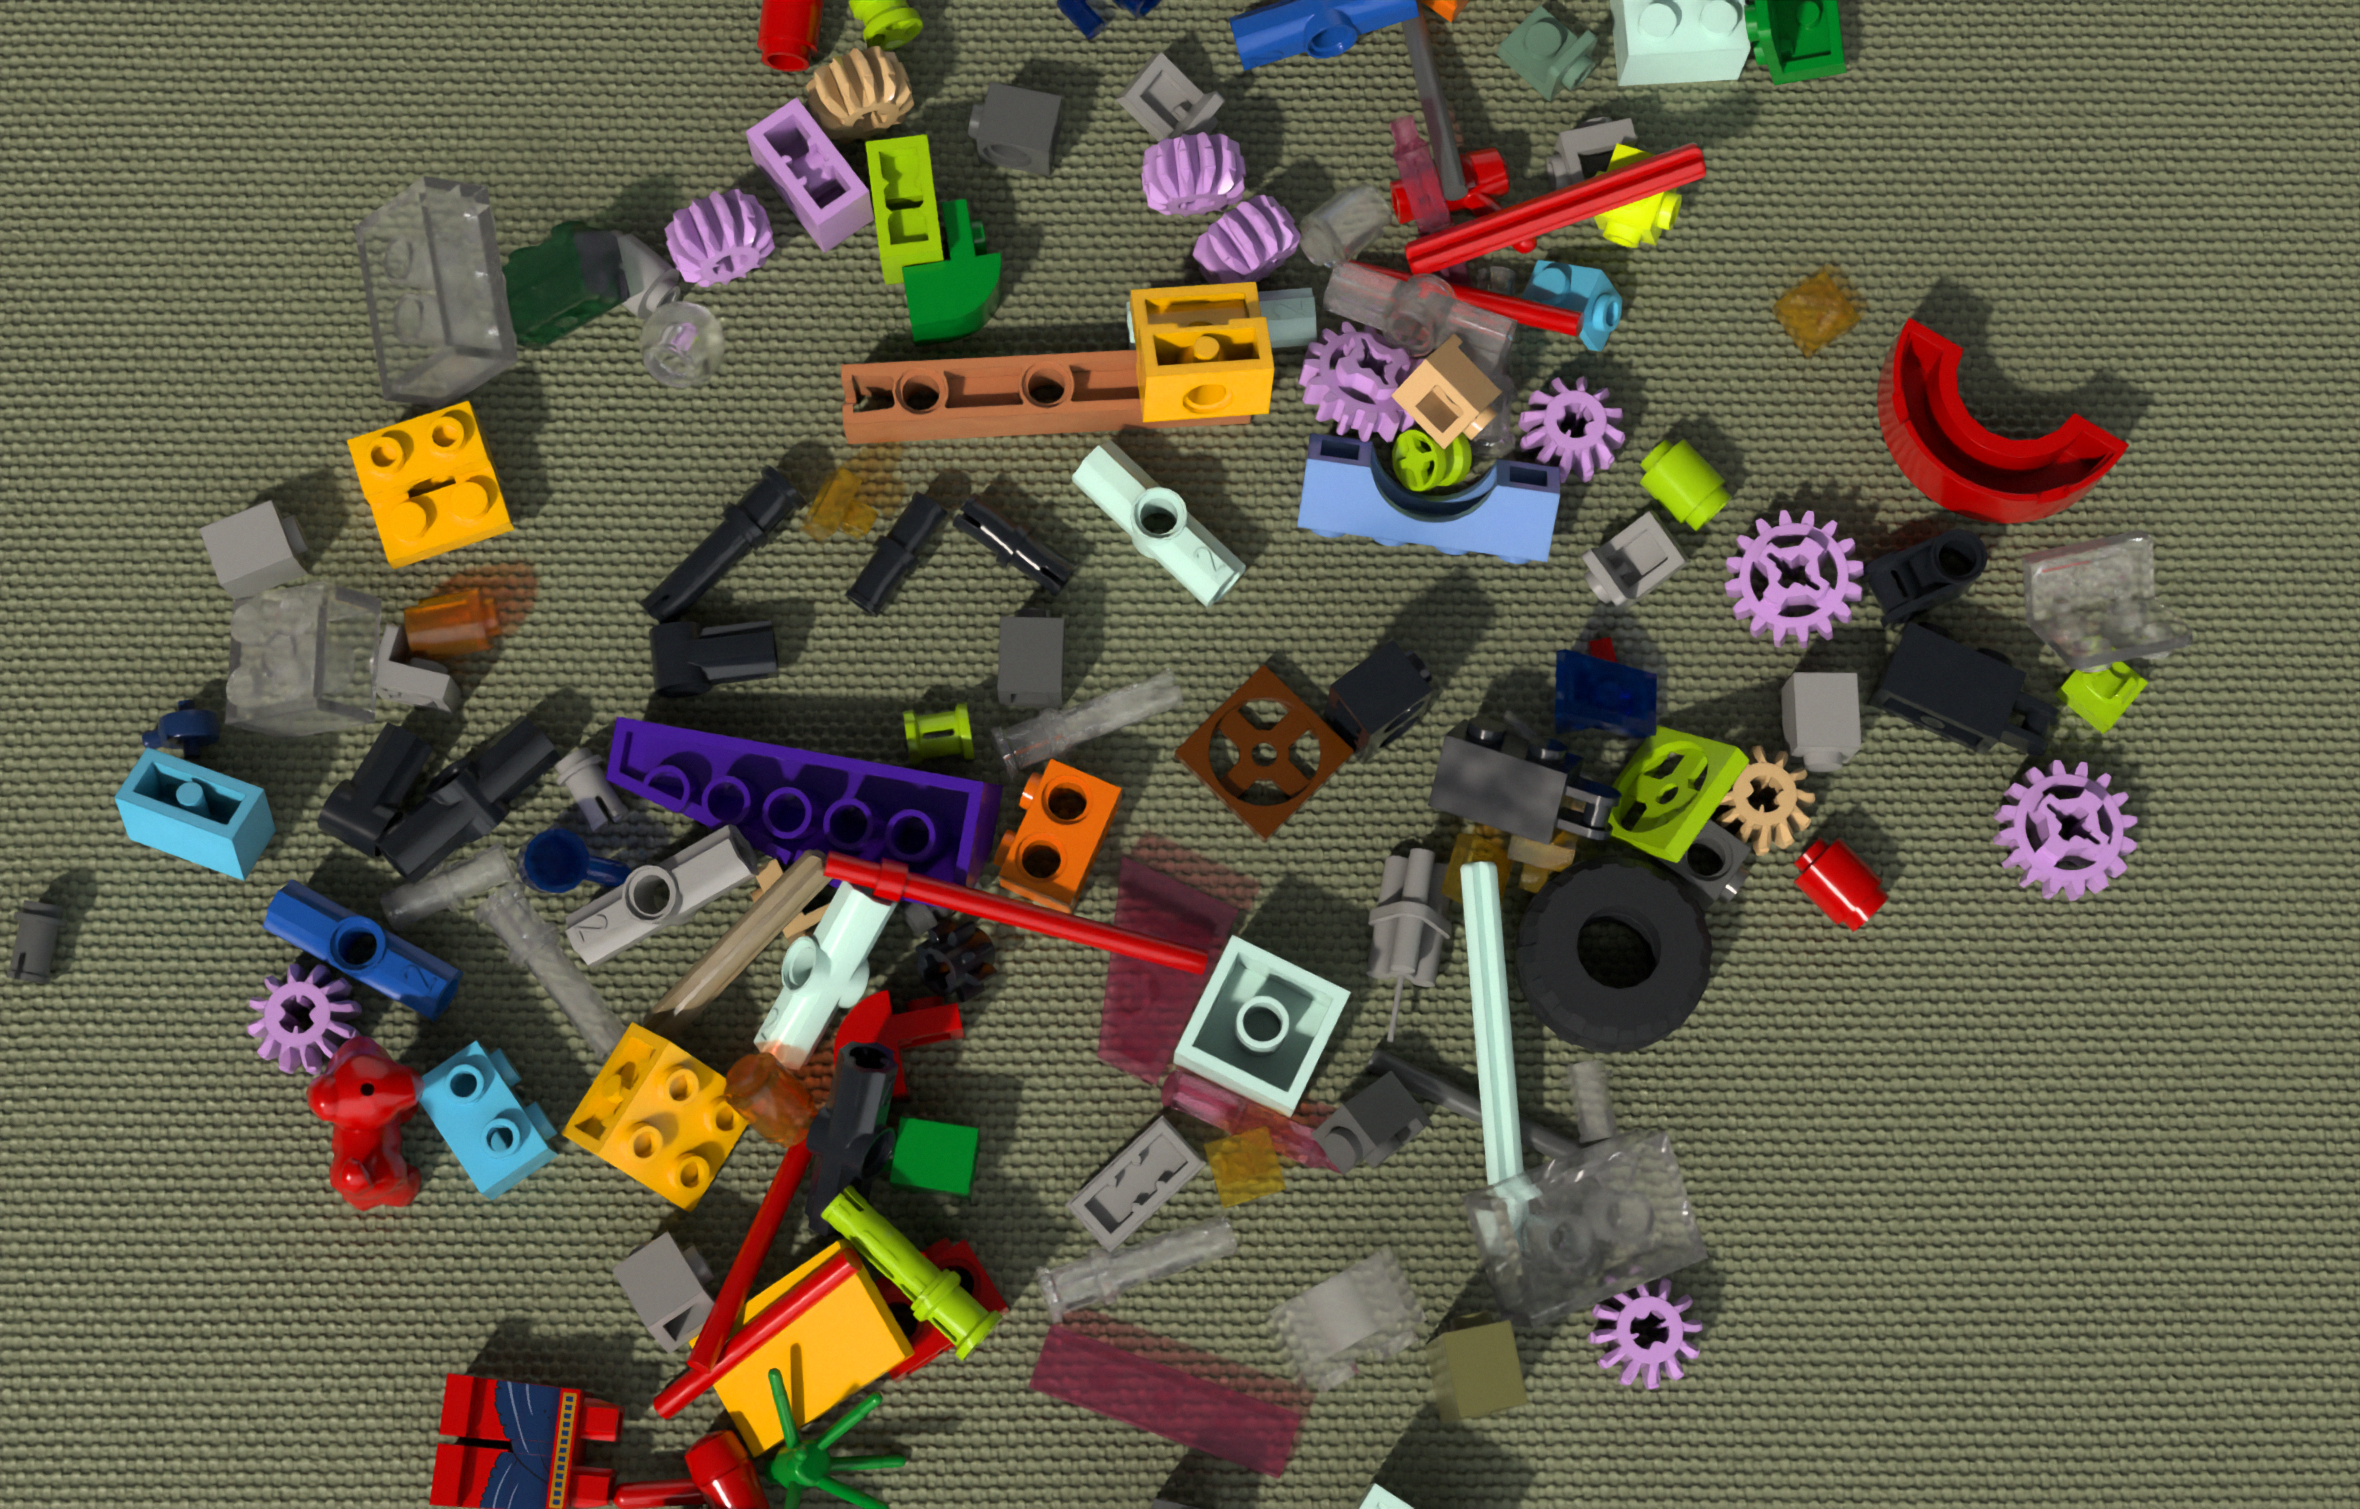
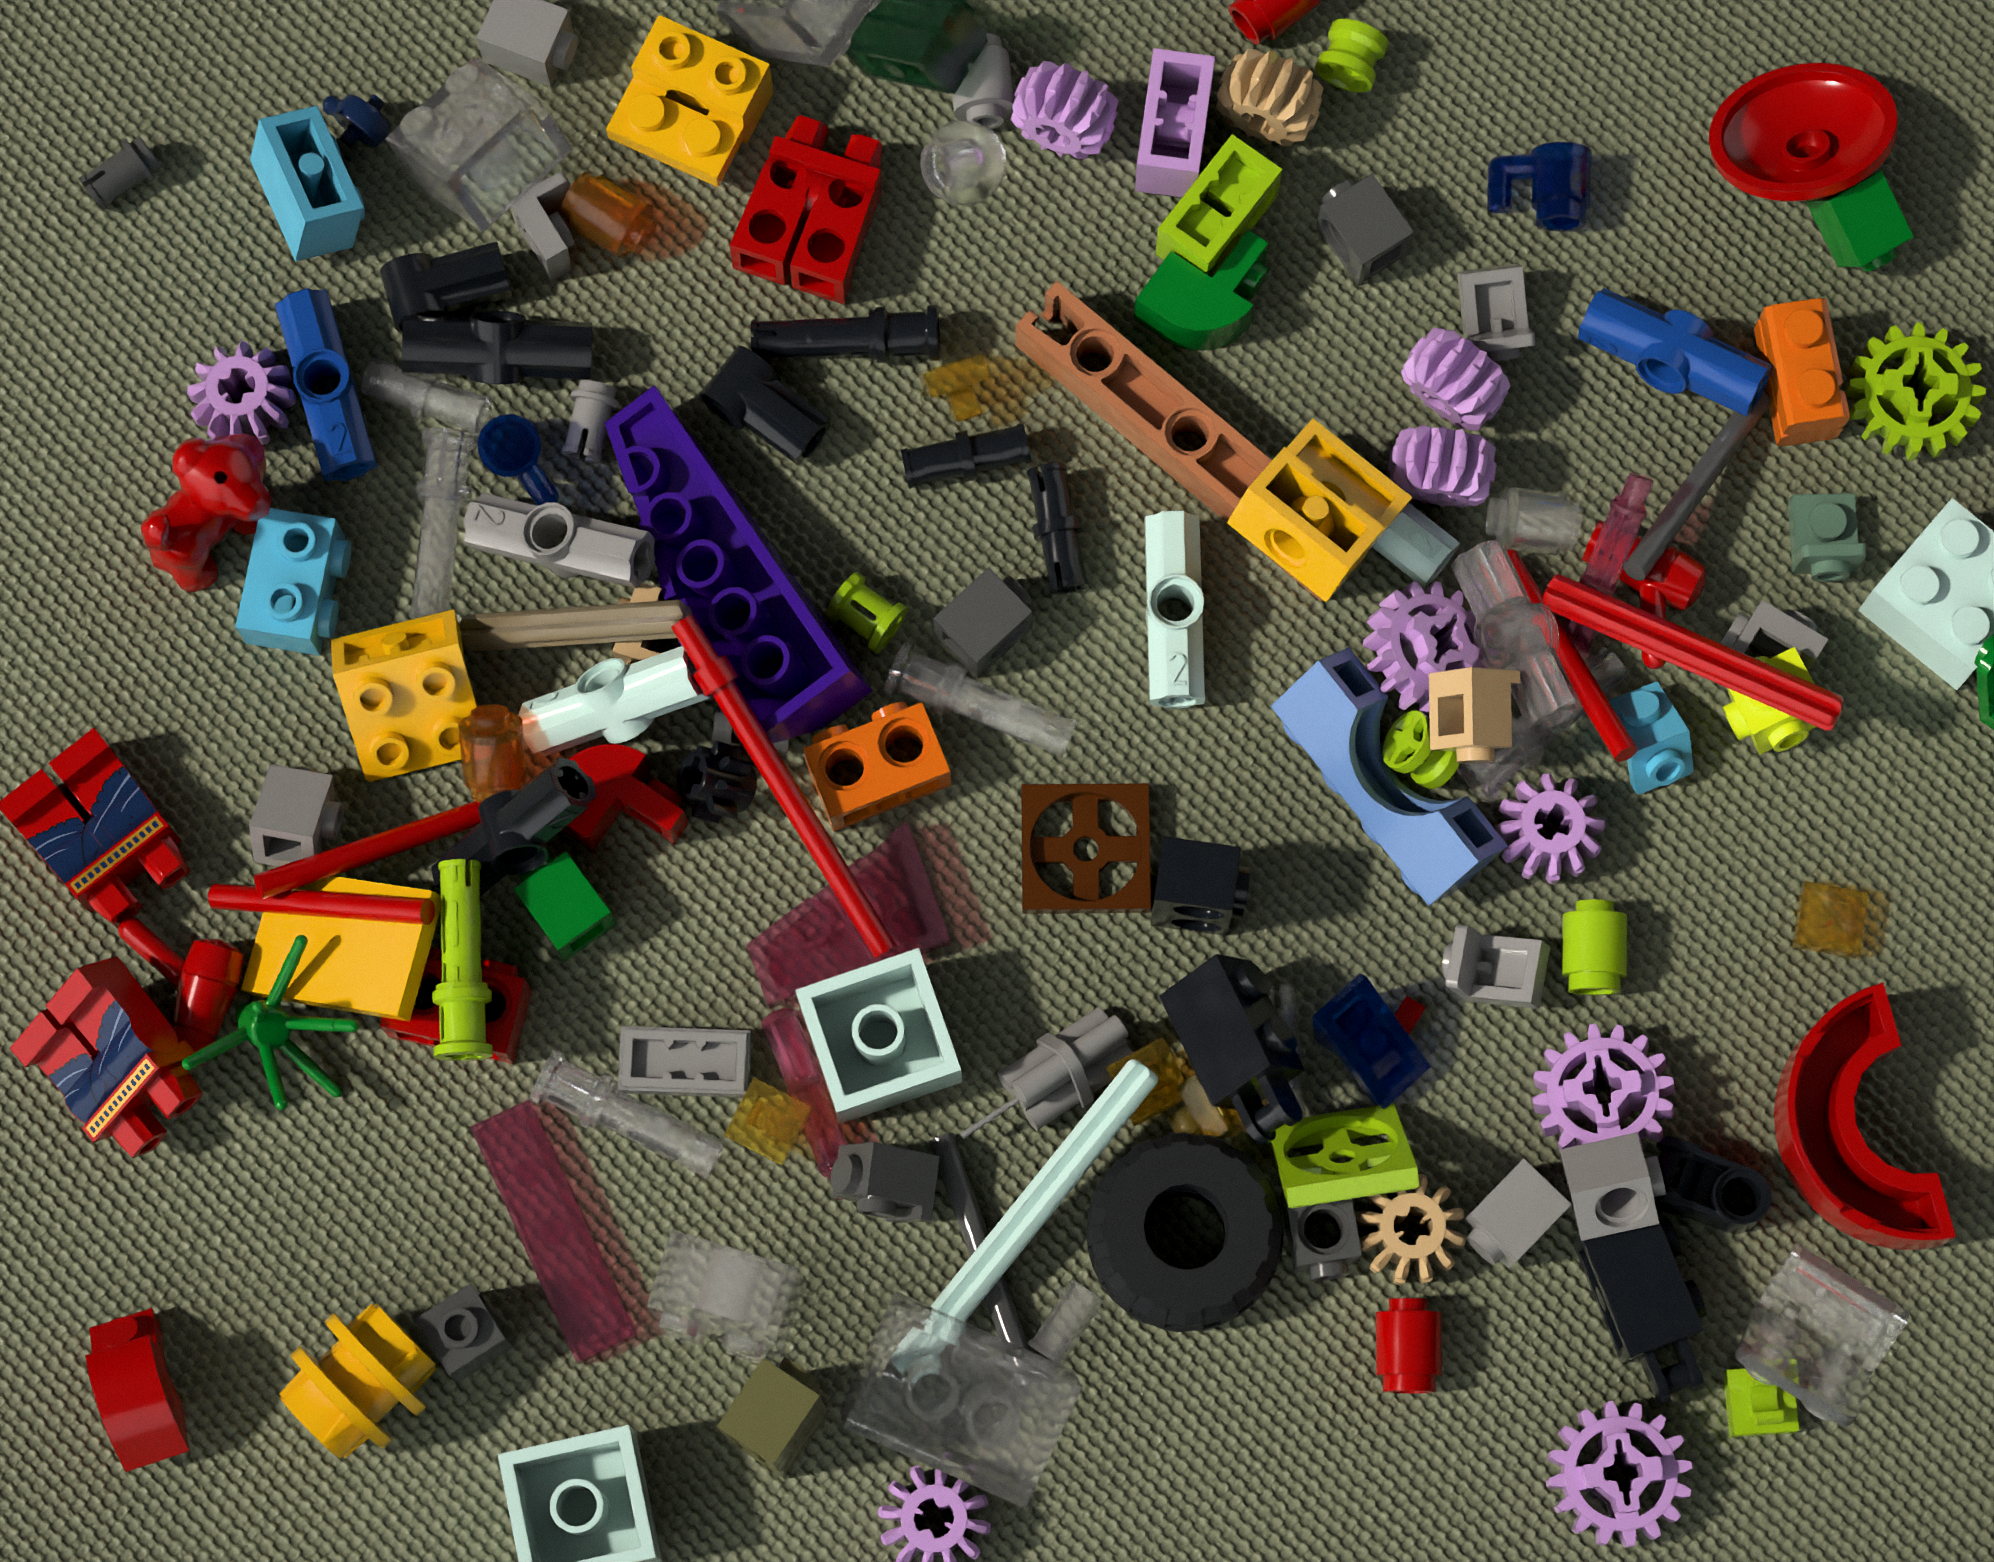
camera: 50 degrees right, 0 degrees up
(600, 459) = (812, 187): none -> red hips
(1871, 633) = (1612, 1185): none -> light grey brick

